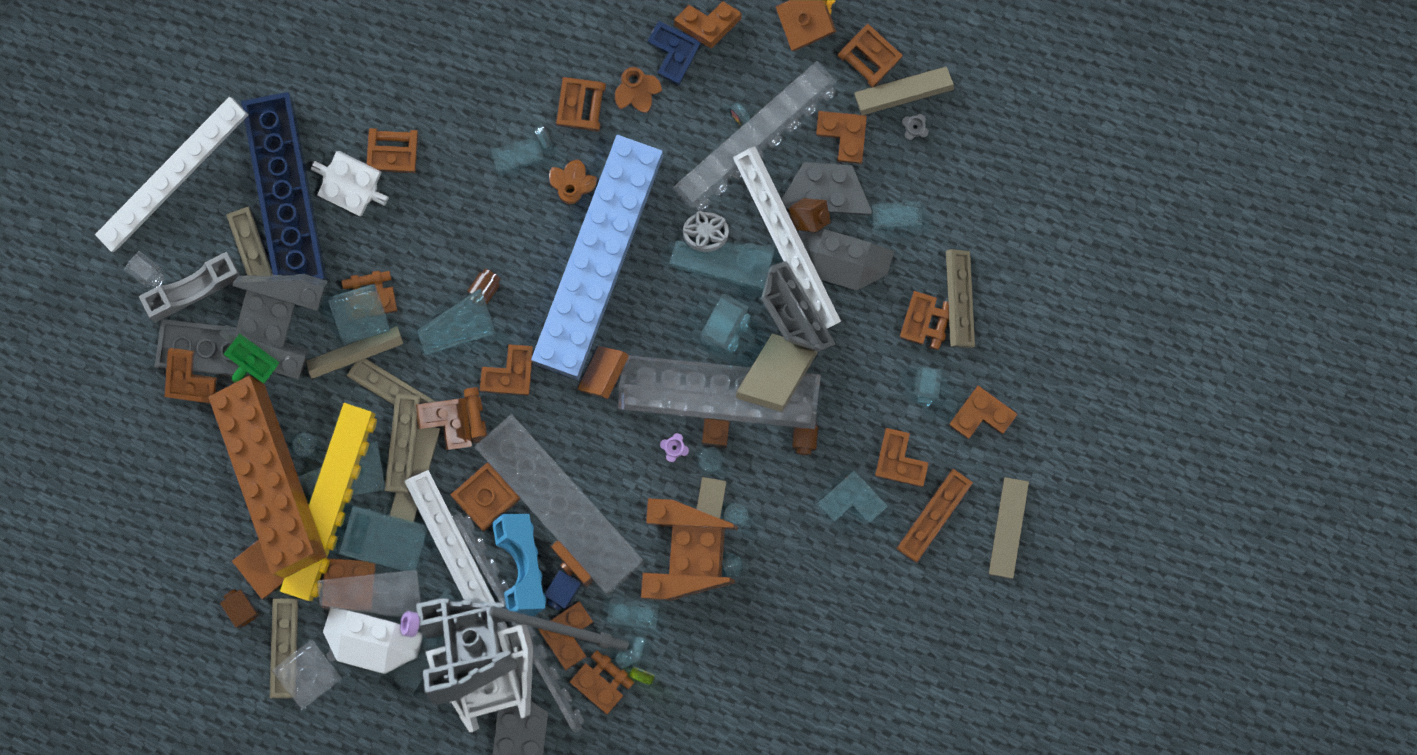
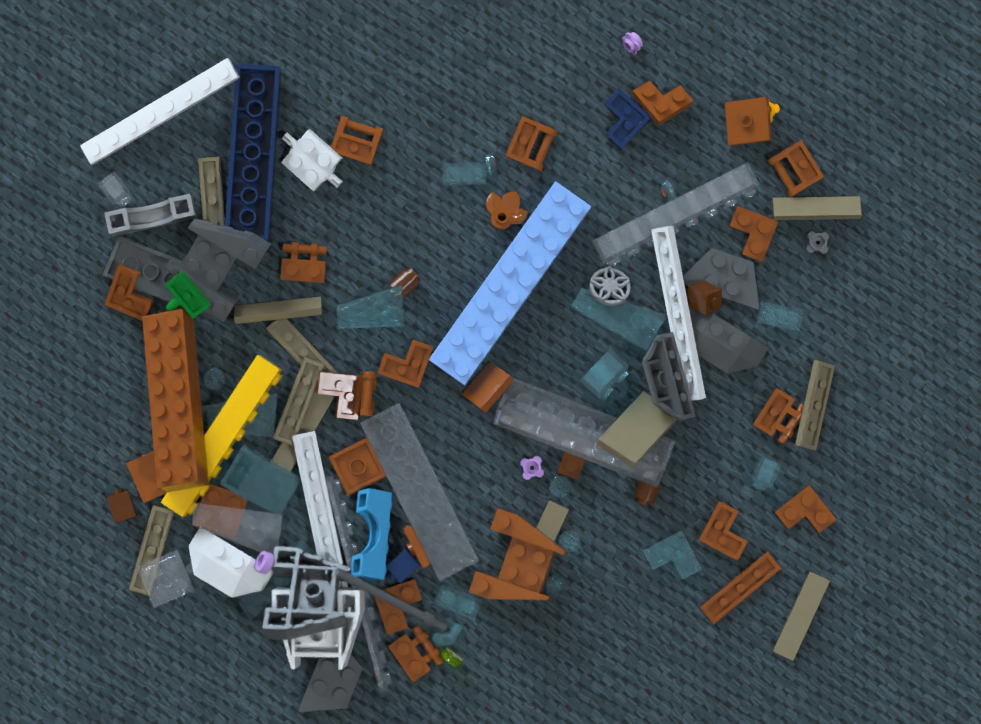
camera: 15 degrees right, 5 degrees up
(359, 314) = (290, 278): clear light blue plate -> none
(637, 93) = (583, 147): dark orange plate -> none

